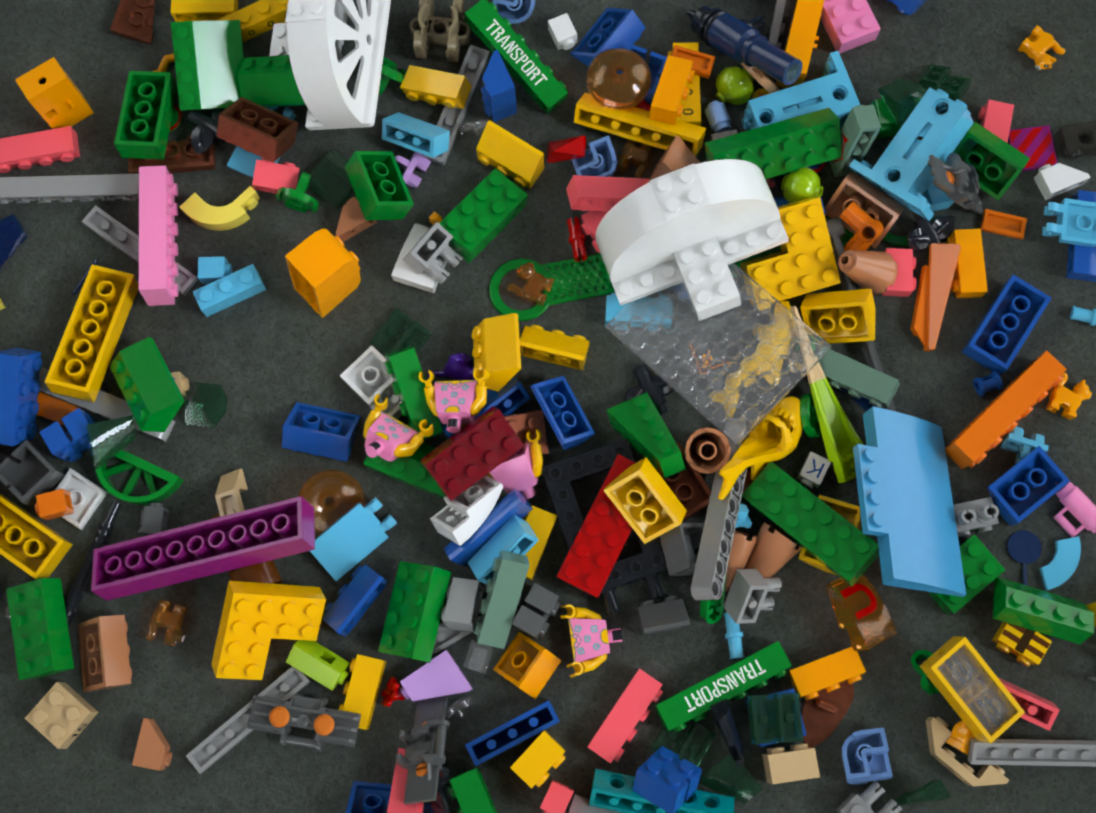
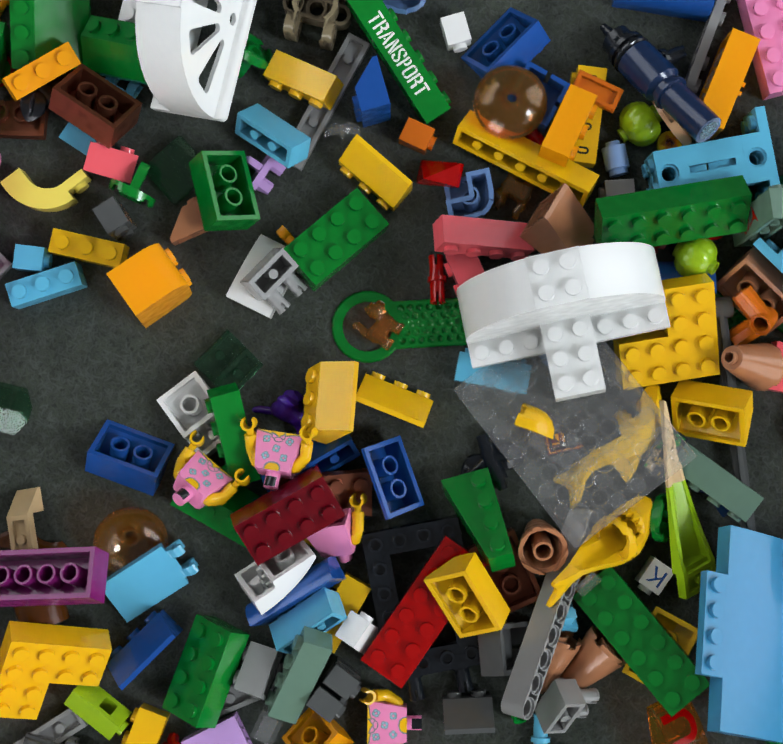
camera: 10 degrees right, 10 degrees up
(206, 106) = (41, 71): none -> light orange brick
(260, 253) = (87, 248): none -> yellow brick
(285, 223) = (115, 219): none -> dark grey brick
(542, 121) = (417, 136): none -> orange brick
(549, 554) = (357, 631): none -> white slope
(682, 339) = (535, 421): none -> yellow brick
(753, 477) = (588, 584): none -> clear tile

